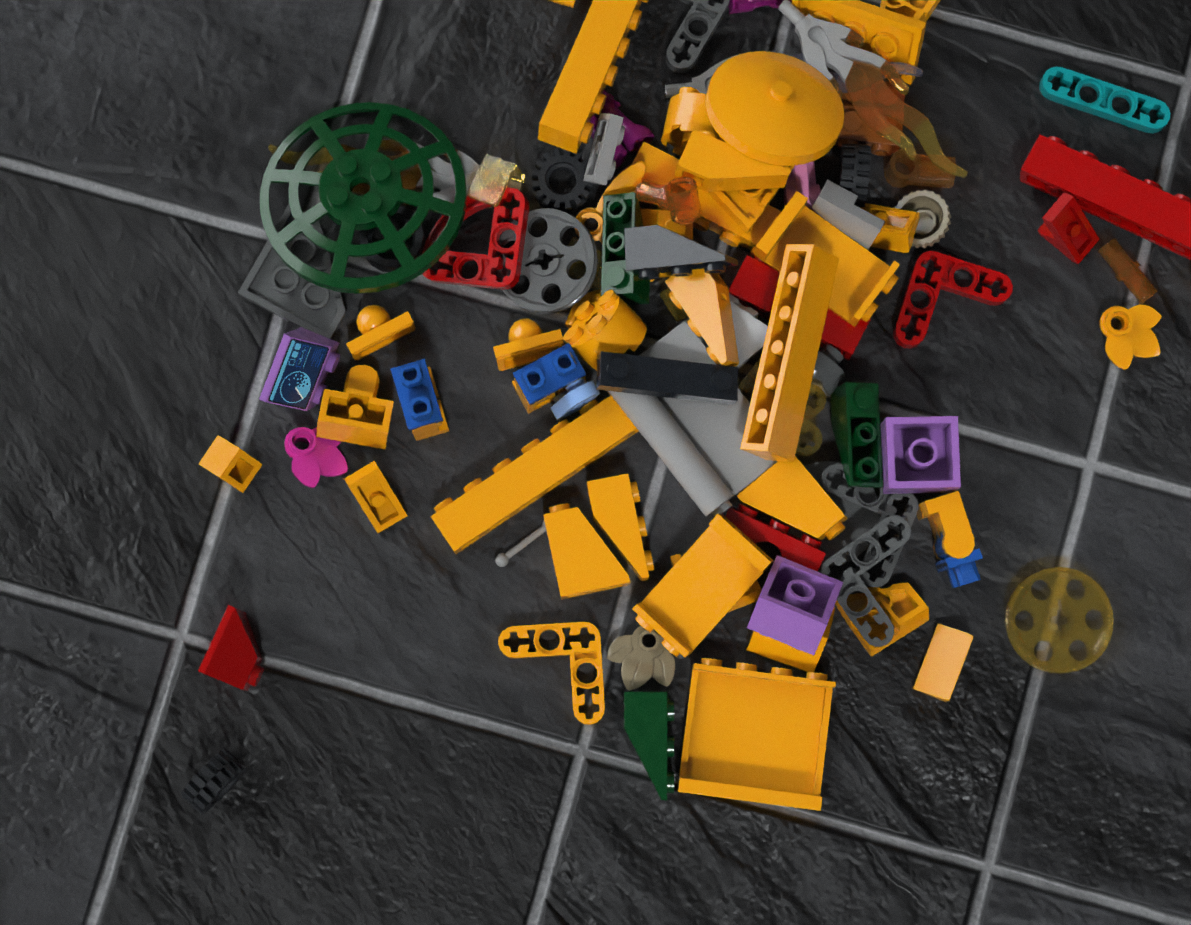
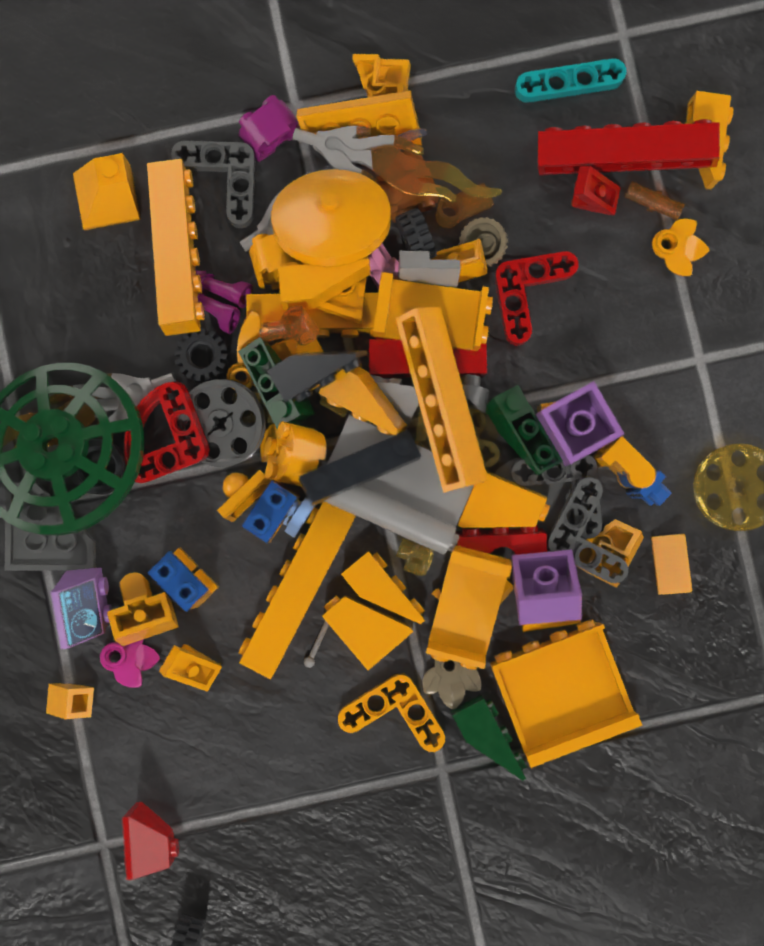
camera: 25 degrees left, 5 degrees up
(378, 330) = (125, 542): light orange tile -> none
(493, 180) = (148, 383): clear yellow bracket -> none
(607, 136) = (217, 305): light grey plate -> none
(675, 506) = (417, 557): none -> clear yellow piece

